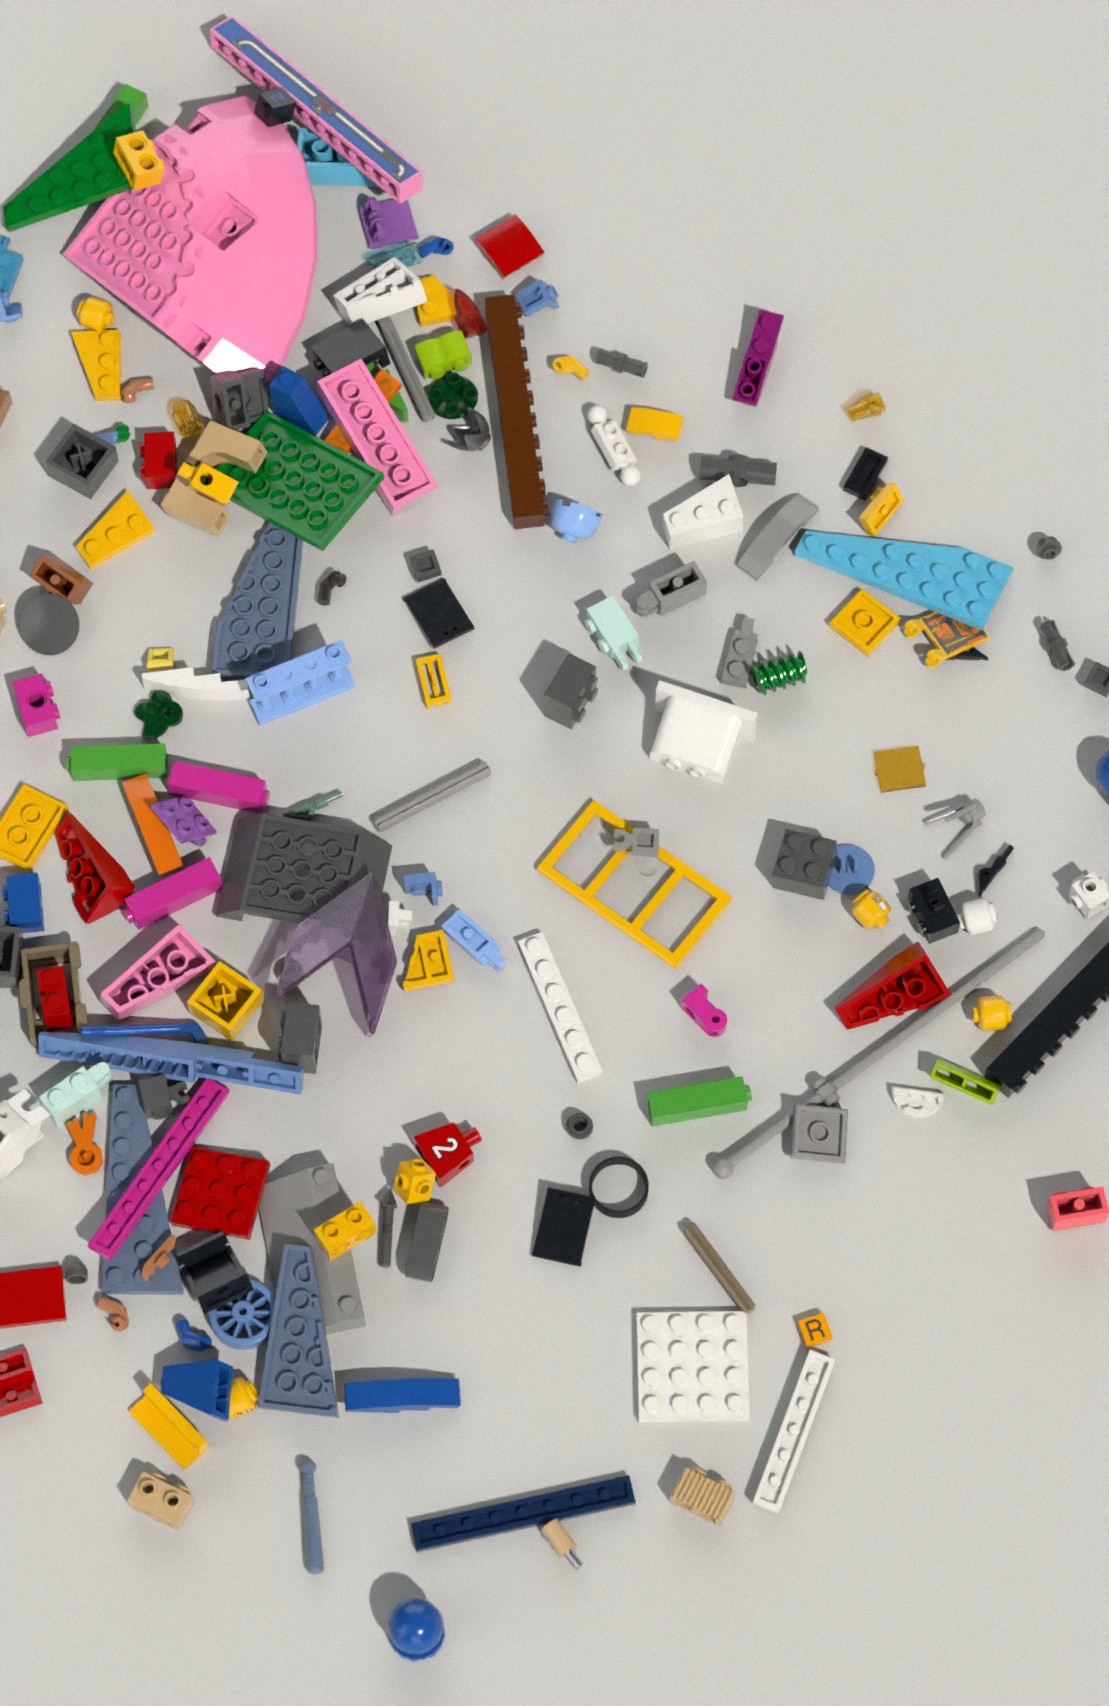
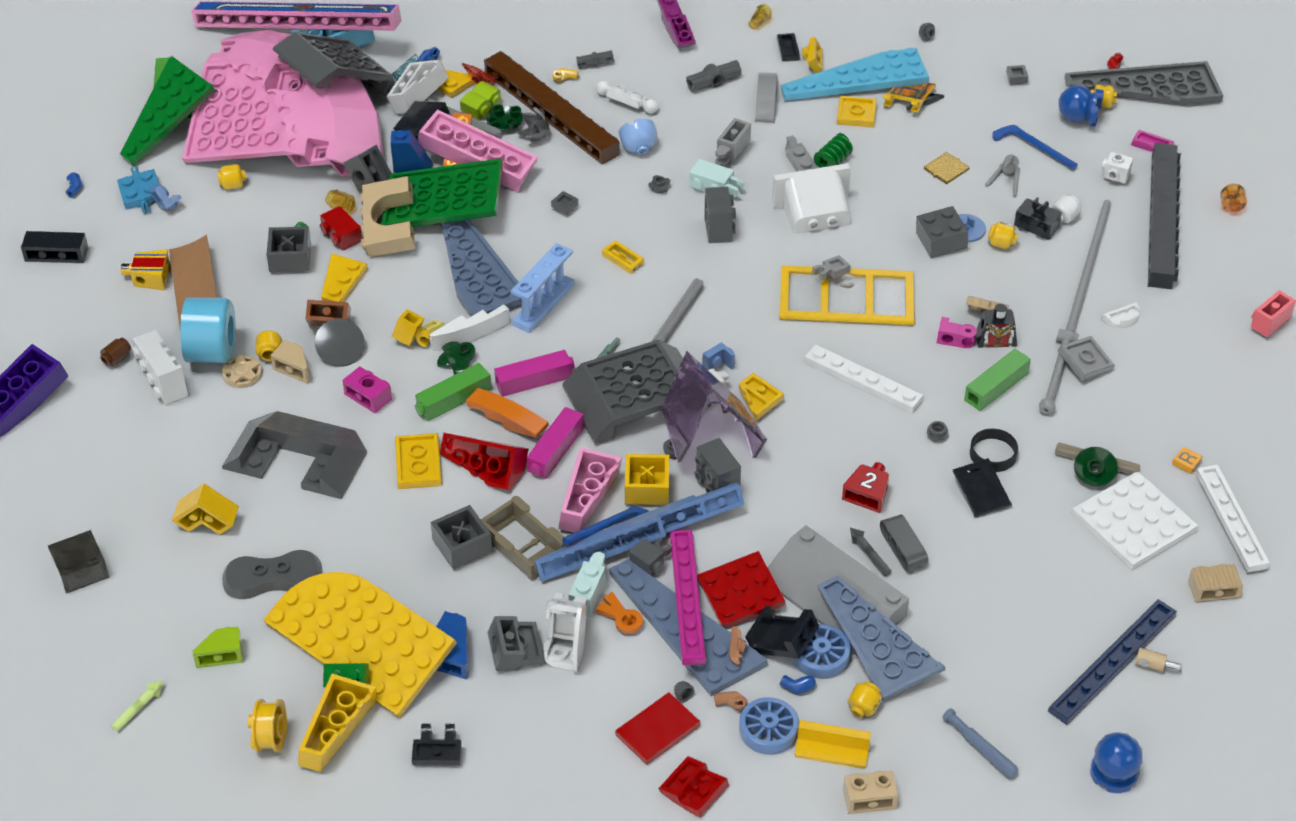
camera: 35 degrees left, 20 degrees down
(24, 902) = (453, 495): blue brick -> none
(55, 998) = (527, 536): red piece -> none
(102, 361) = (255, 199): yellow wing -> none
(126, 1363) = (766, 721): none -> medium blue wheel
(130, 650) = (409, 328): none -> yellow brick
(136, 386) = (290, 201): nougat arm -> none
(138, 160) = (206, 71): yellow brick -> none
(184, 820) = (522, 397): medium lavender hinge -> none
(200, 1385) = (836, 701): blue slope -> none
(219, 486) = (393, 208): yellow torso -> none
(269, 219) = (325, 57): none -> dark grey slope
(275, 107) = (270, 22): black brick -> none
(334, 579) = (509, 241): clear smoke arm -> none
(345, 1231) = (854, 551): yellow brick -> none
(387, 222) = (387, 56): medium lavender hinge -> none
(402, 1394) = (975, 632): blue slope -> none
(414, 1181) = (866, 508): yellow brick -> none
(438, 613) = (594, 223): black container -> none
(473, 940) = (778, 369): light blue hinge -> none
(509, 246) = (473, 36): red slope -> none
(537, 297) = (515, 49): medium blue bracket -> none
(554, 605) = (659, 184): none -> dark grey plate
(653, 422) = (645, 74): yellow slope -> none
(690, 1274) = (1095, 458): none -> dark green dish
(704, 516) = (716, 102): white wedge -> none
(750, 1036) = (997, 328): none -> torso
(770, 998) = (979, 304): none -> tan wing
(897, 987) = (1056, 264): red wedge -> none
(967, 1076) = (1142, 290): lime piece -> none
(992, 1013) = (1122, 250): yellow head -> none
(996, 867) = (1049, 187): black hand -> none
(1025, 760) = (1015, 130): none -> blue piece
(1057, 645) = (977, 70): dark grey pin -> none

